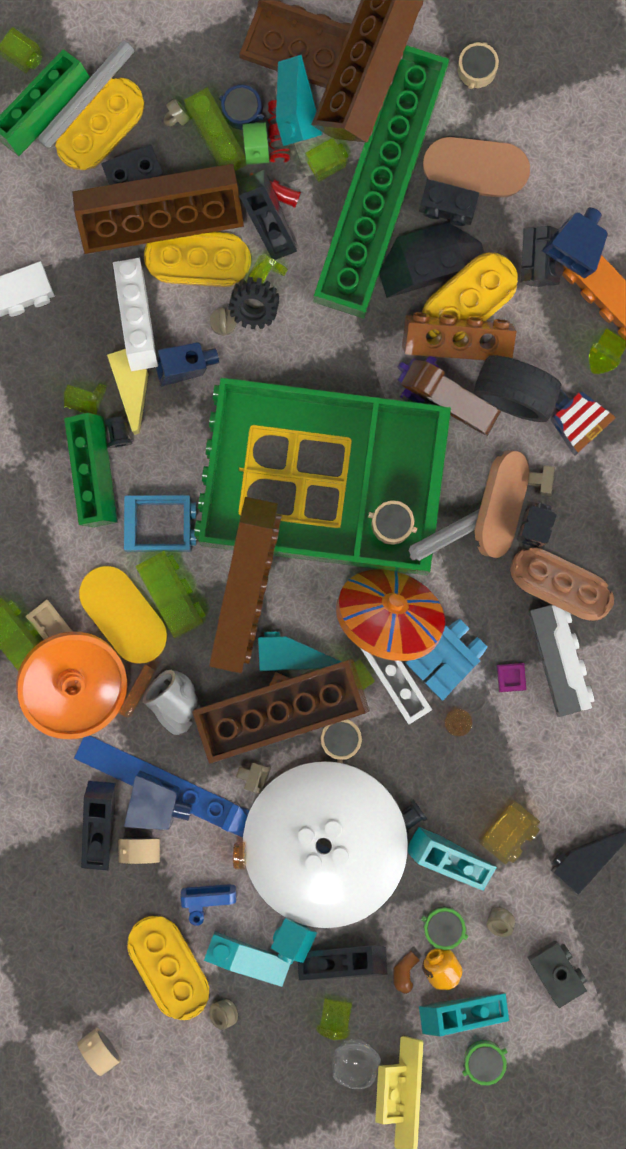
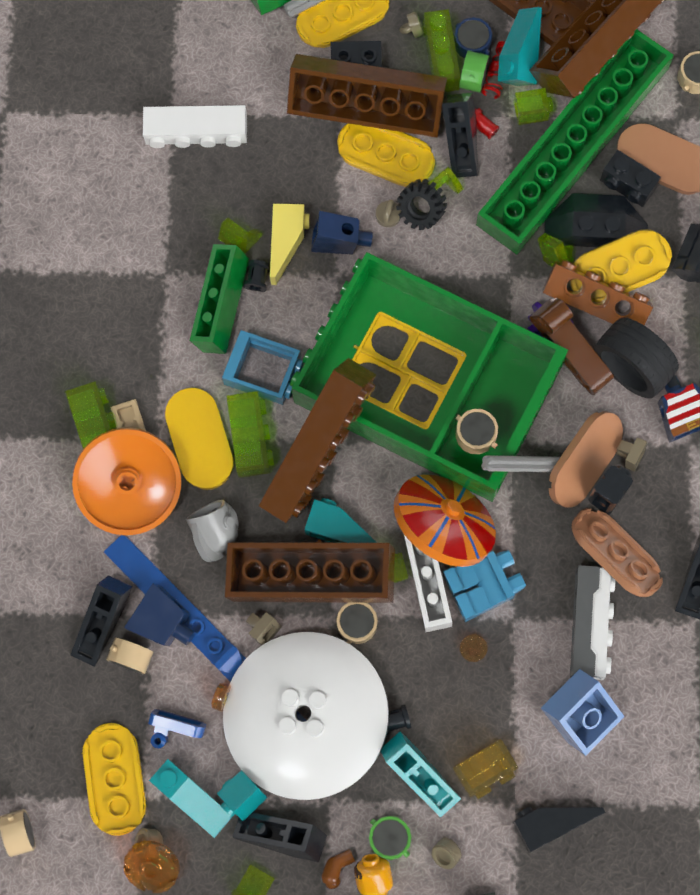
camera: 25 degrees right, 10 degrees down
(135, 314) = (311, 177): white brick -> none
(137, 691) = (185, 509): clear orange tile -> none
(235, 1036) = (151, 866): none -> clear orange tile
(402, 305) = (554, 250): none -> clear neon green tile
(511, 677) = (538, 624): magenta tile -> none
(581, 749) = (582, 712): none -> medium blue brick

